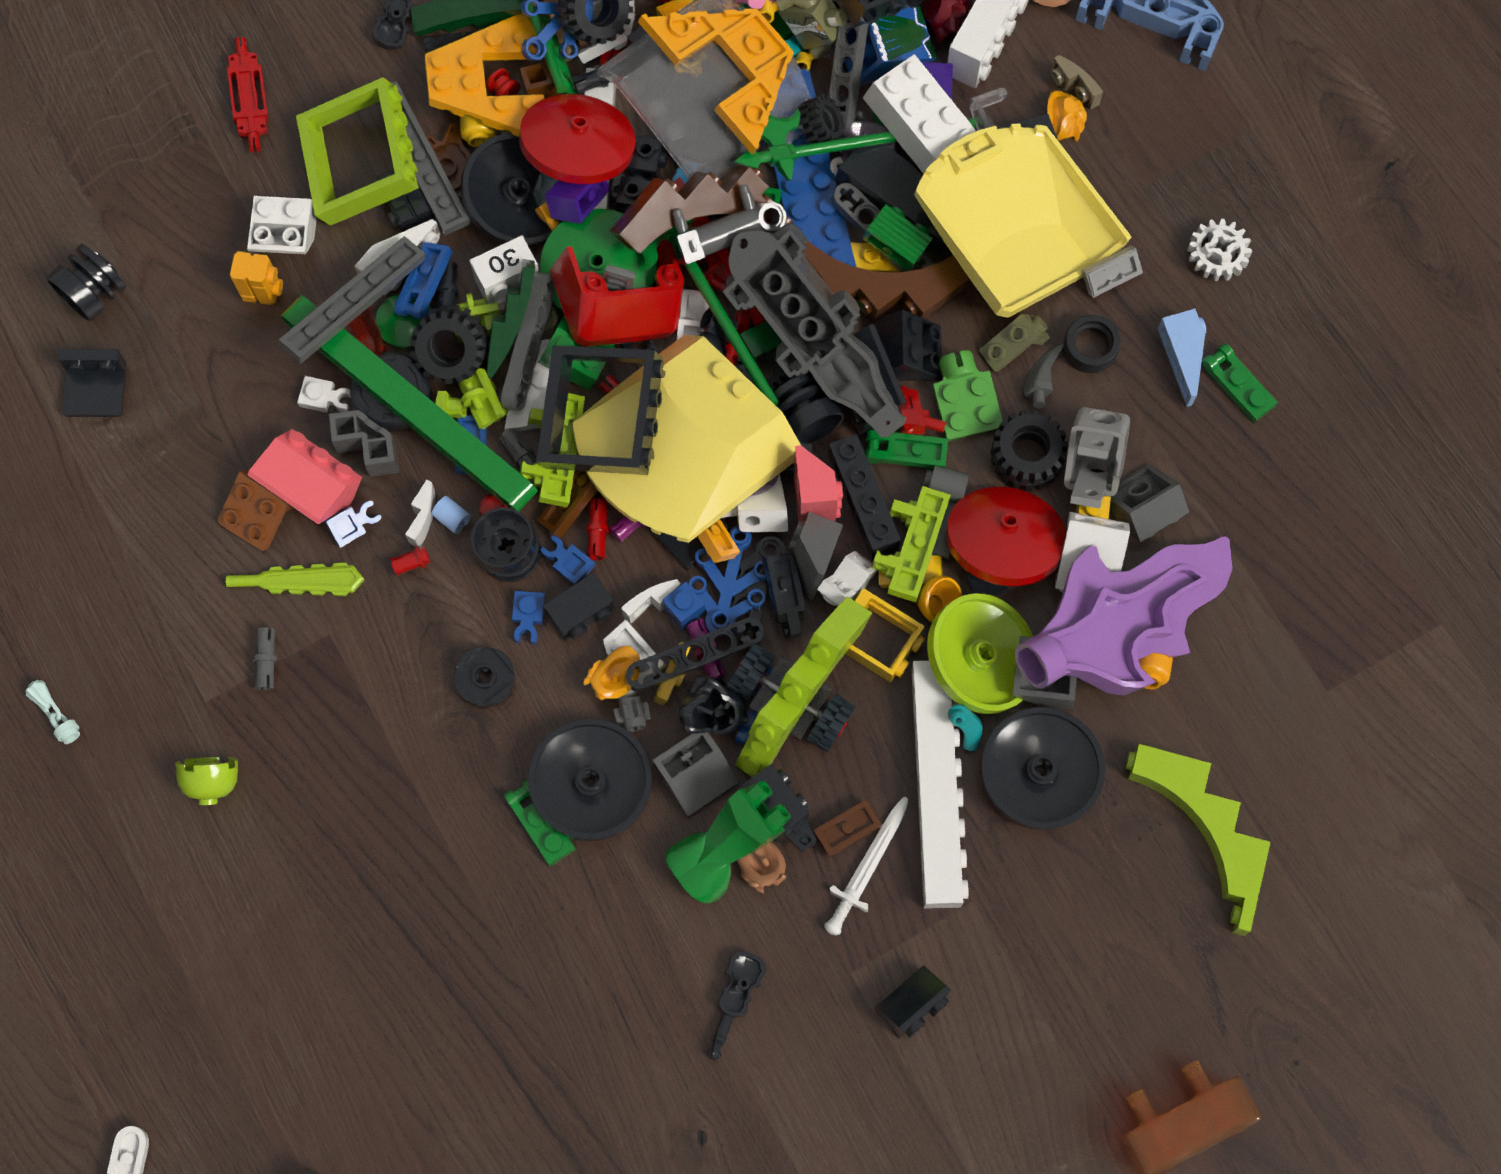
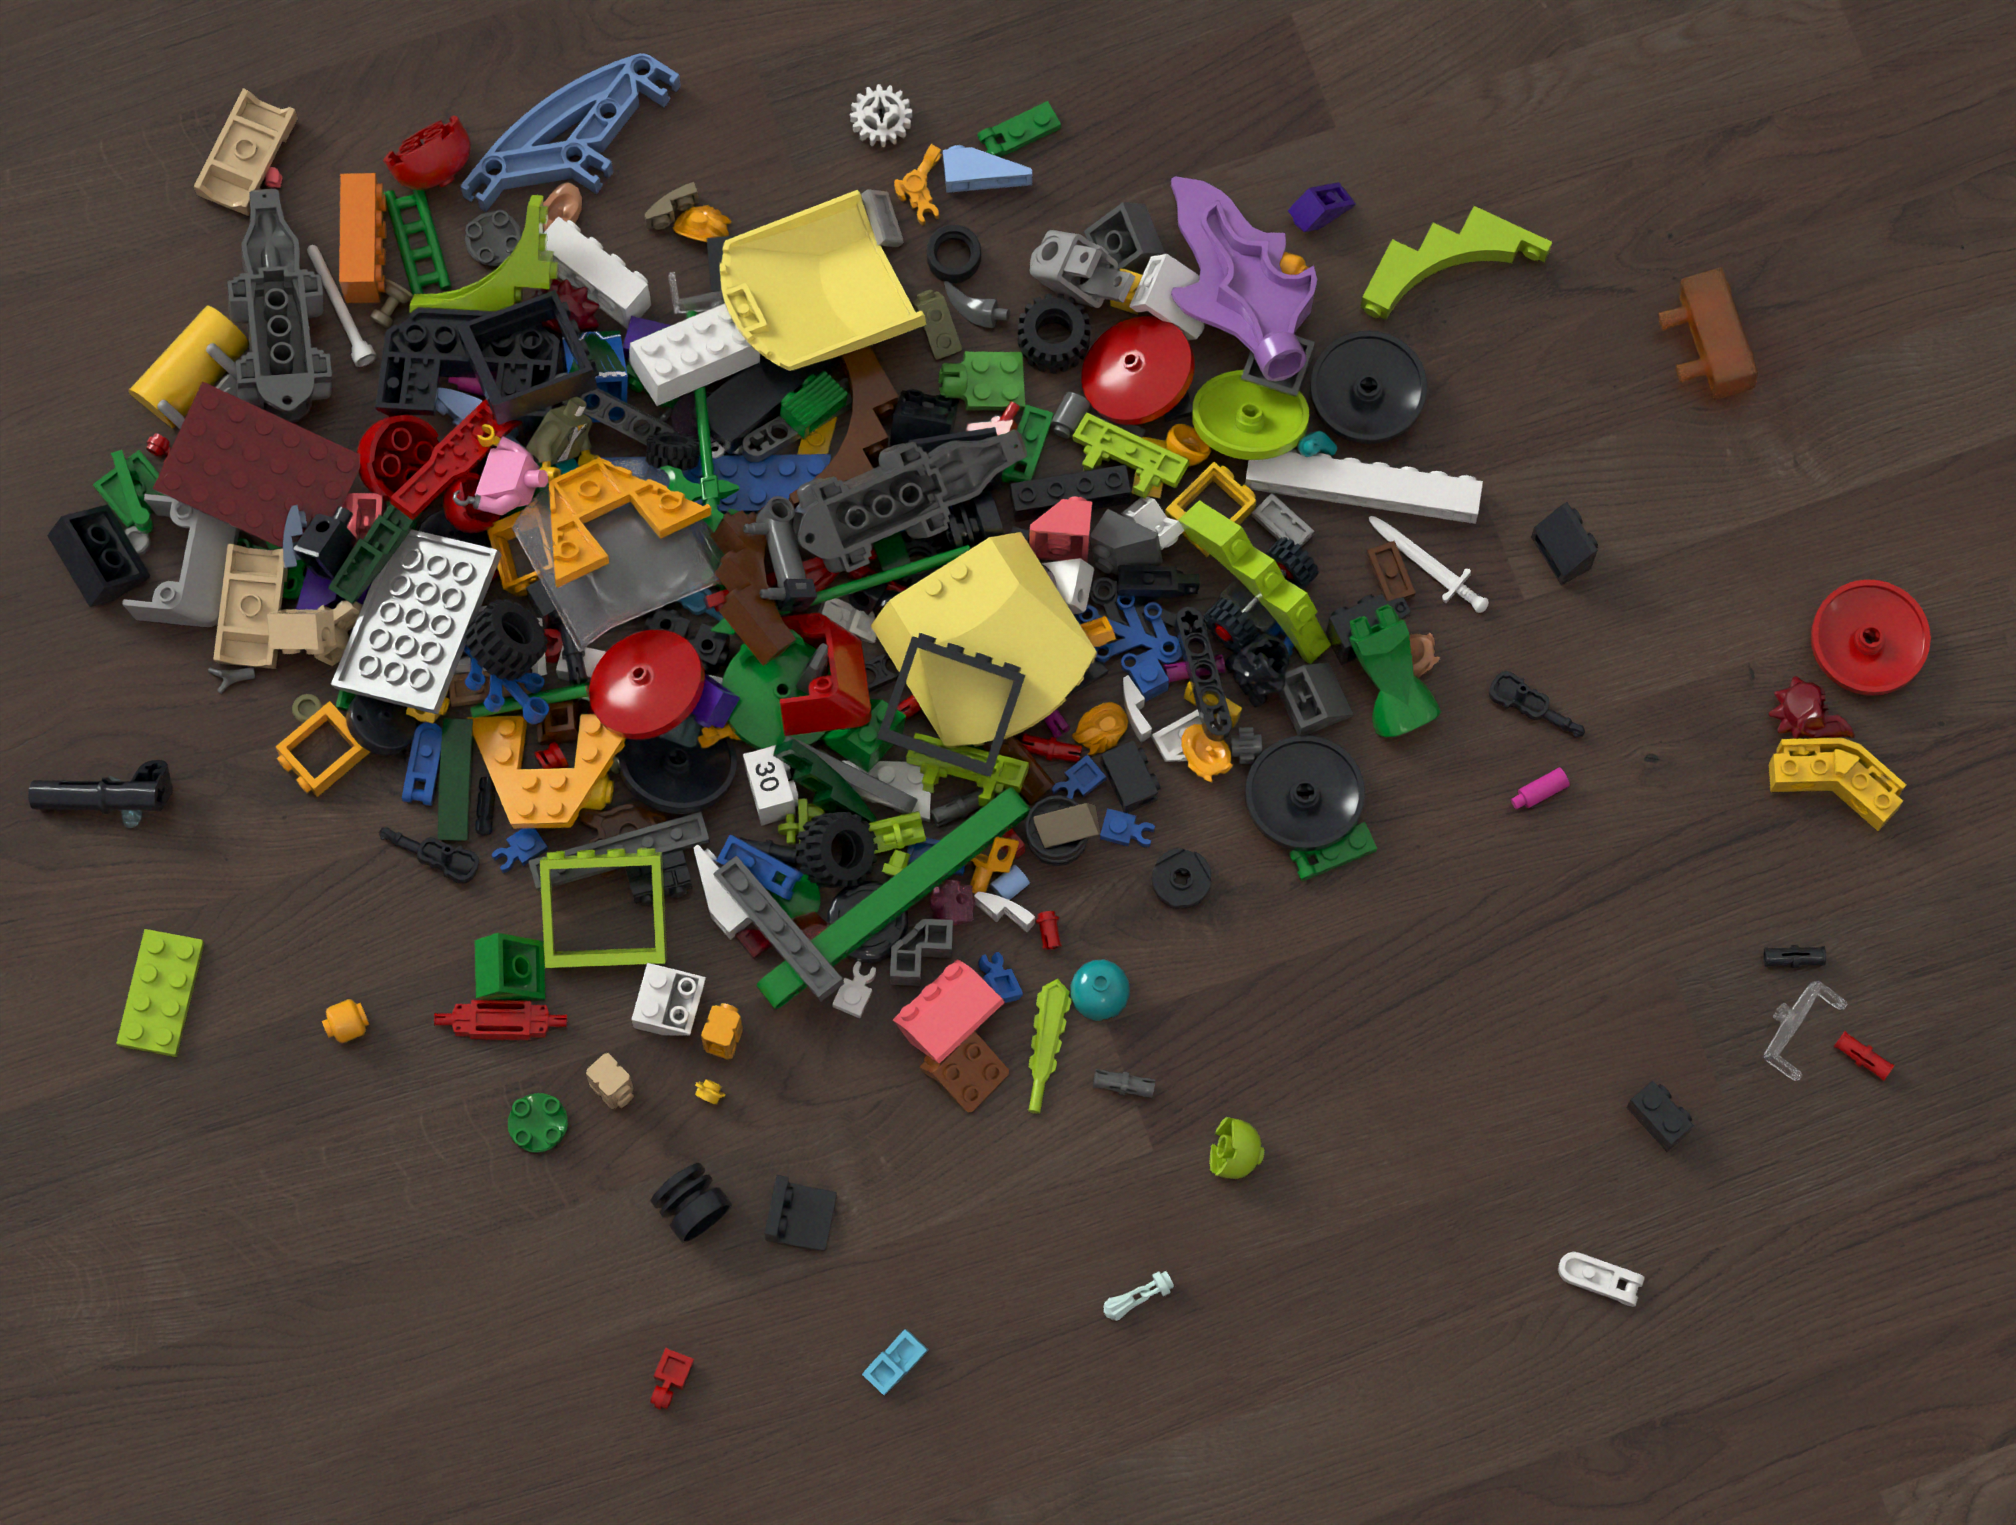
camera: 80 degrees left, 0 degrees up
(154, 143) = (537, 1122): none -> green dish
(193, 191) = (610, 1081): none -> tan brick
(202, 283) = (709, 1091): none -> yellow plate
(292, 88) = (509, 968): none -> green slope
(358, 620) = (1100, 990): none -> teal cylinder
(409, 467) = (953, 902): none -> clear pink brick
(413, 81) = (524, 845): none -> blue plate
(464, 490) = (987, 865): none -> light orange bracket
(503, 546) = (1067, 825): none -> dark tan slope
(628, 572) = (1101, 727): none -> light orange hat
(642, 1023) = (1541, 789): none -> dark pink cylinder
(878, 710) = (1282, 521): none -> light grey plate
(1155, 297) = (916, 187): none -> light orange piece
(1232, 688) = (1320, 206): none -> dark purple slope

